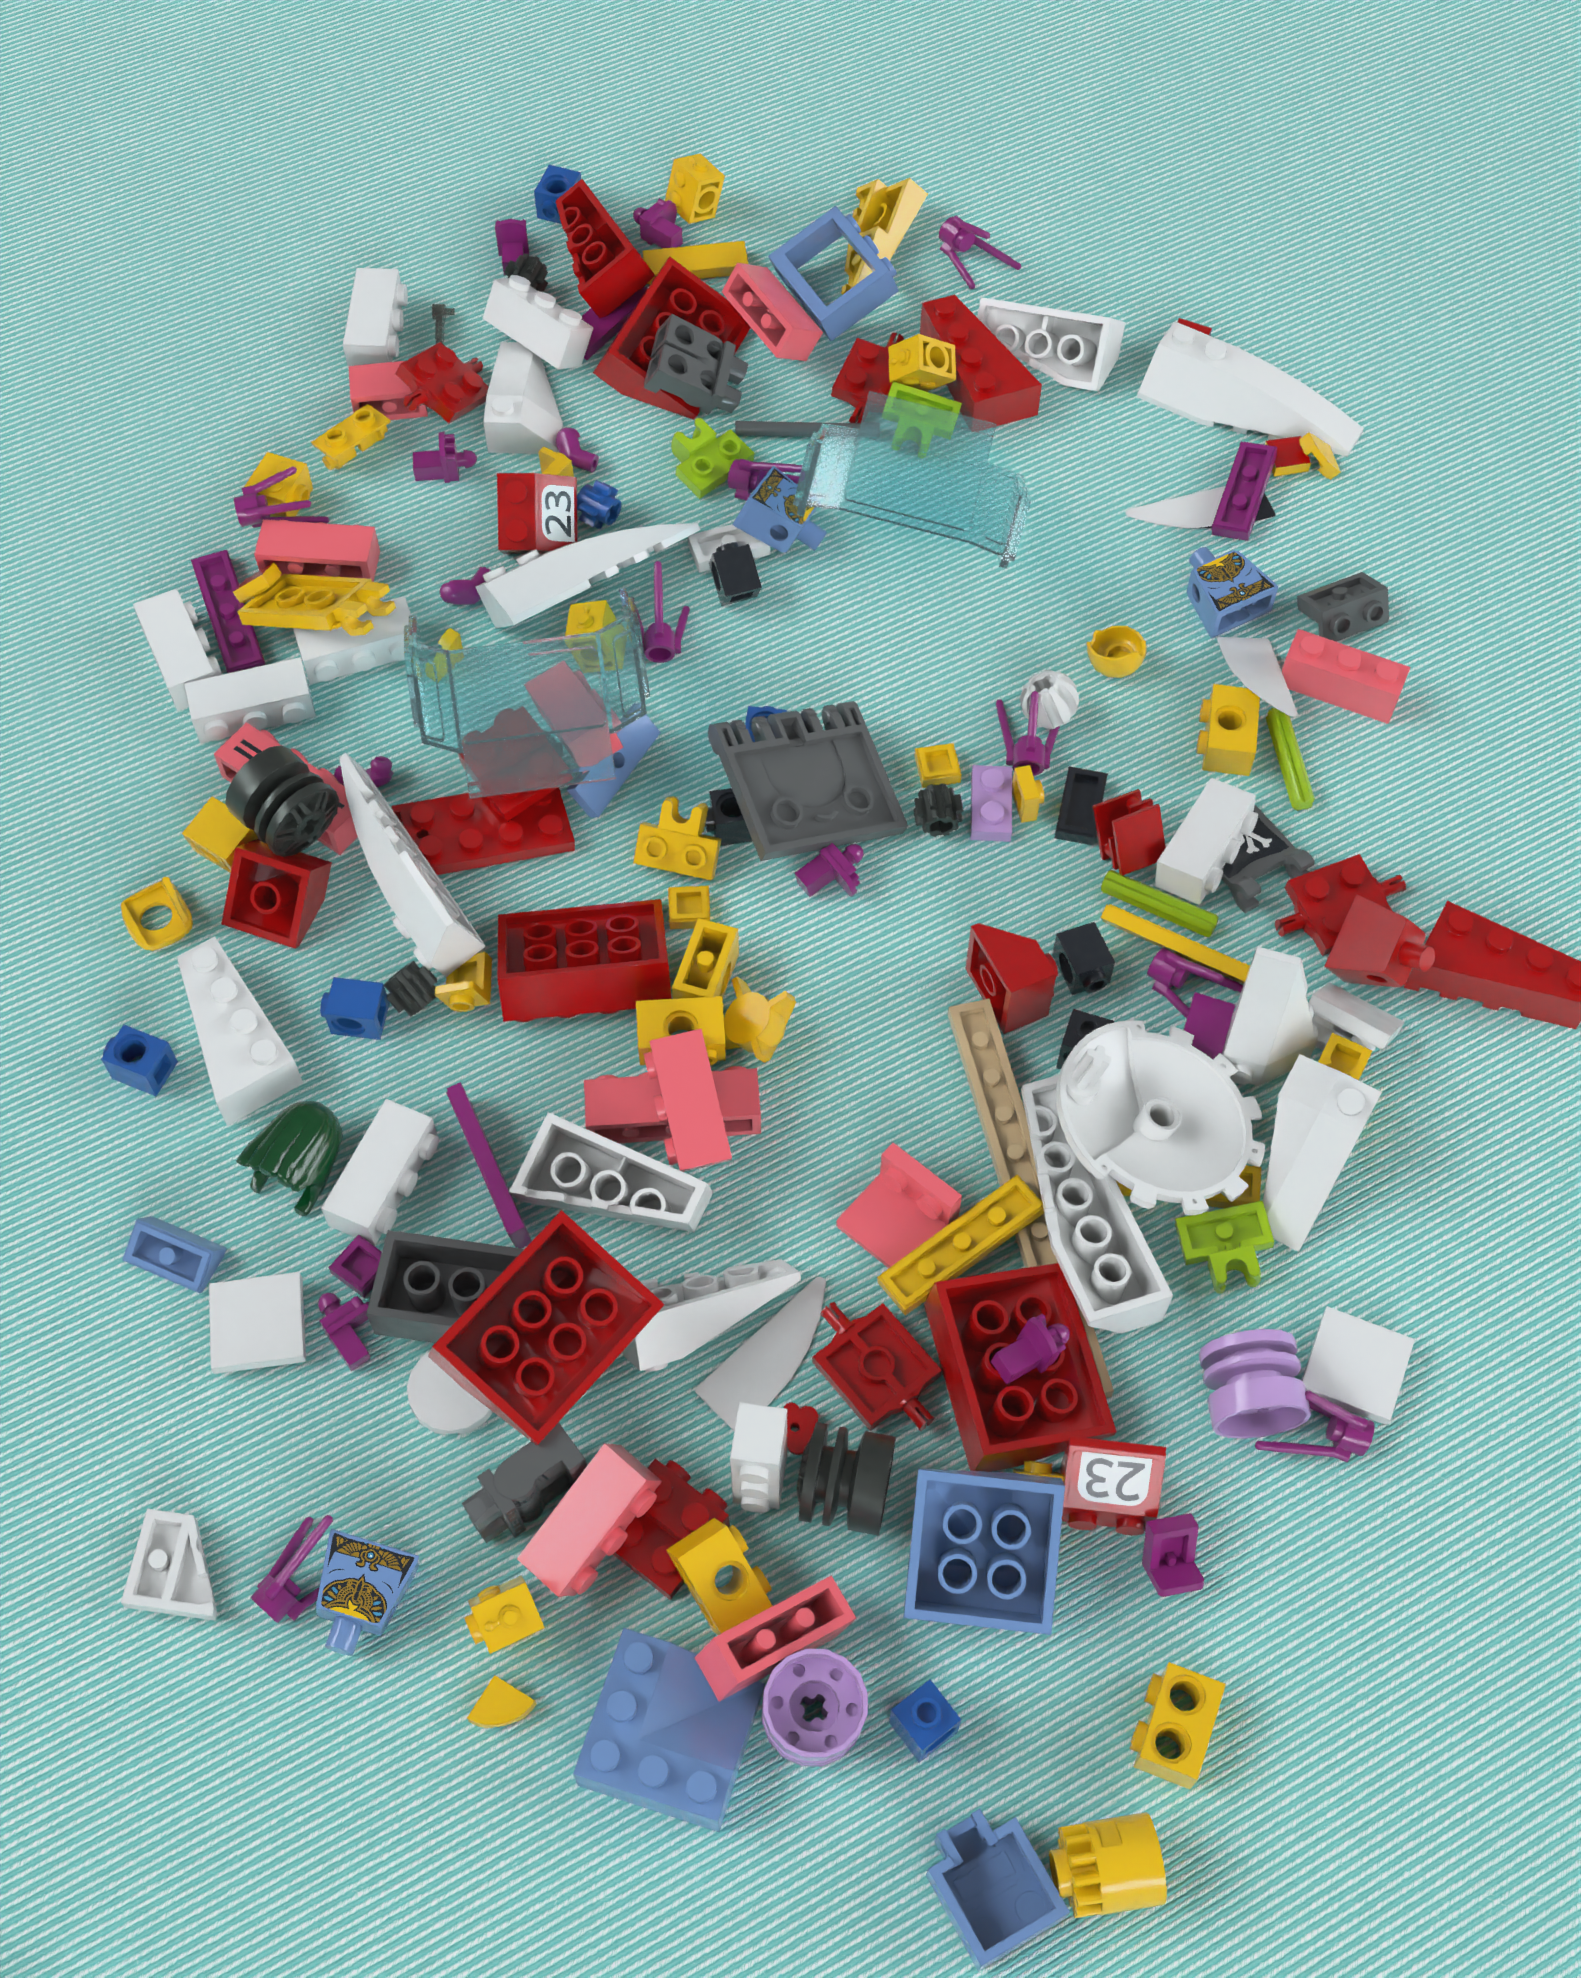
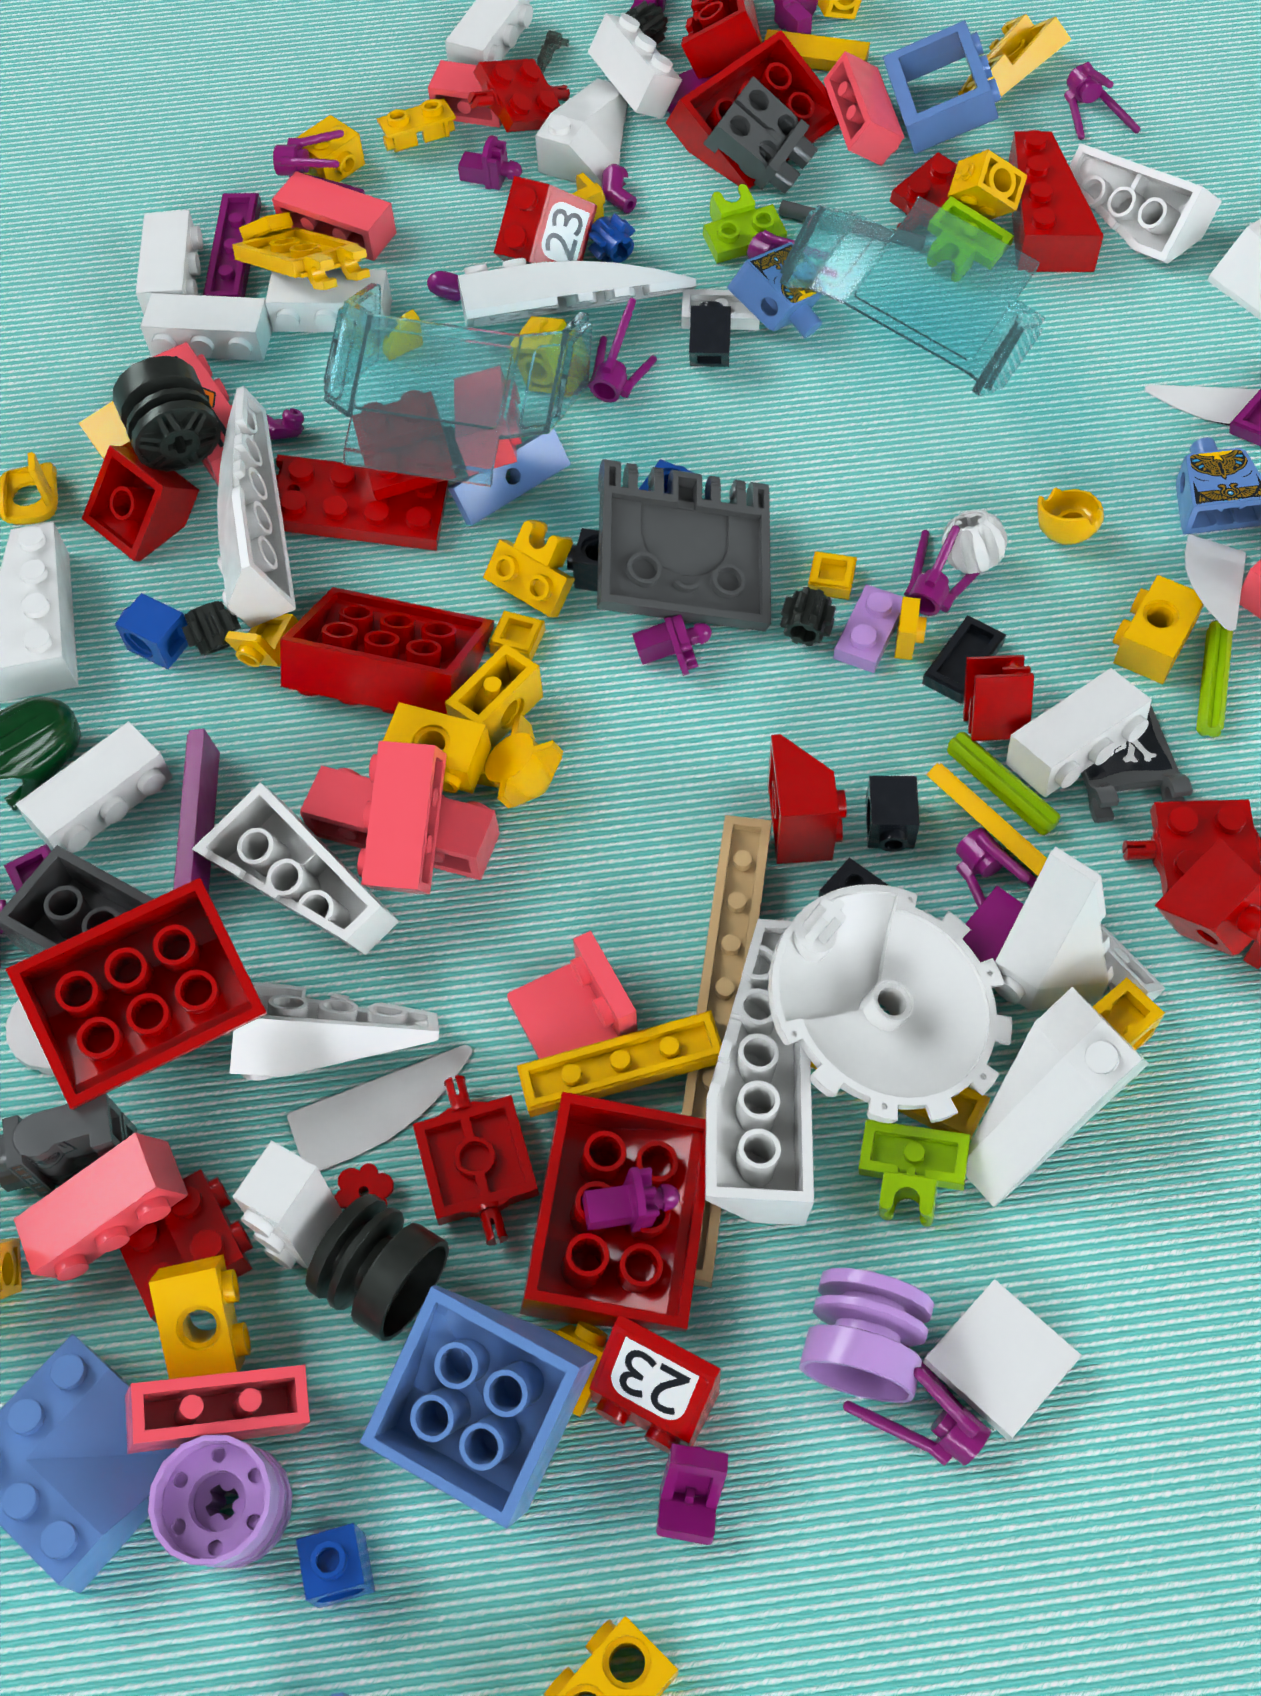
camera: 25 degrees right, 0 degrees up
(1367, 1023) = (1174, 979): white tile -> none

